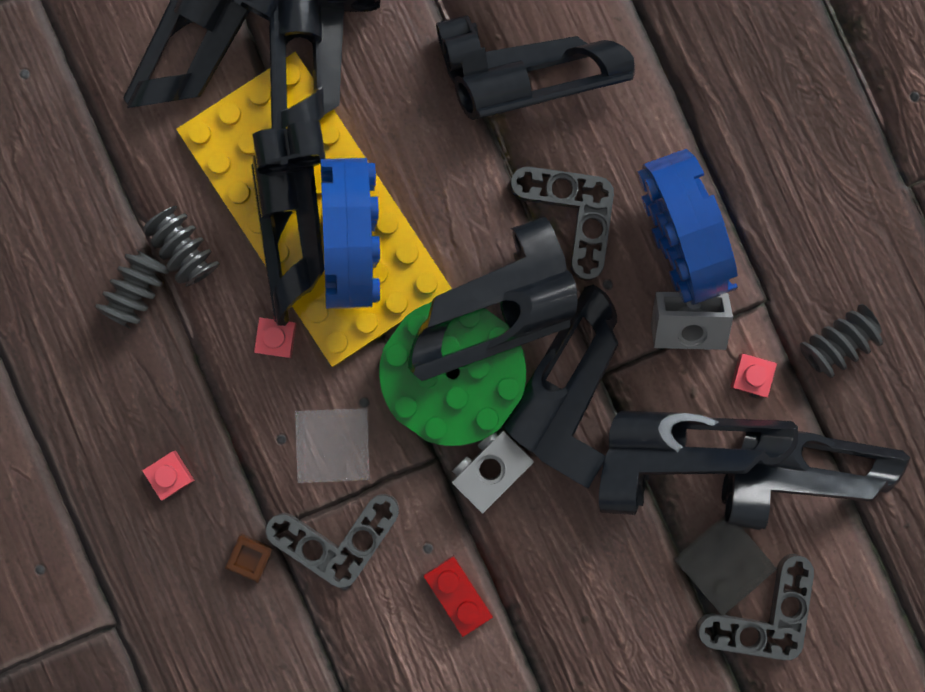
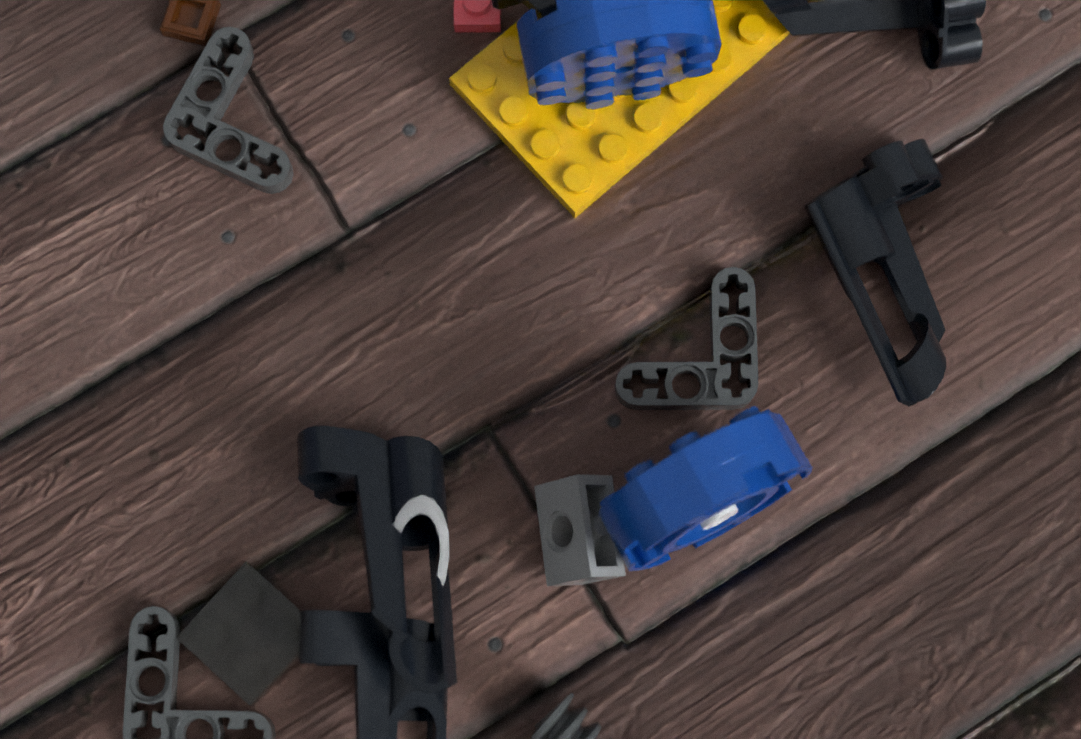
camera: 85 degrees right, 10 degrees down
(332, 445) = (347, 96): clear tile -> none
(458, 596) = (168, 281): red plate -> none
(459, 408) = (470, 182): green piece -> none
(484, 491) = (353, 321): light grey brick -> none
(533, 295) = (586, 299): black panel -> none
(550, 415) = (431, 356): black panel -> none
(753, 375) = (517, 636): coral plate -> none

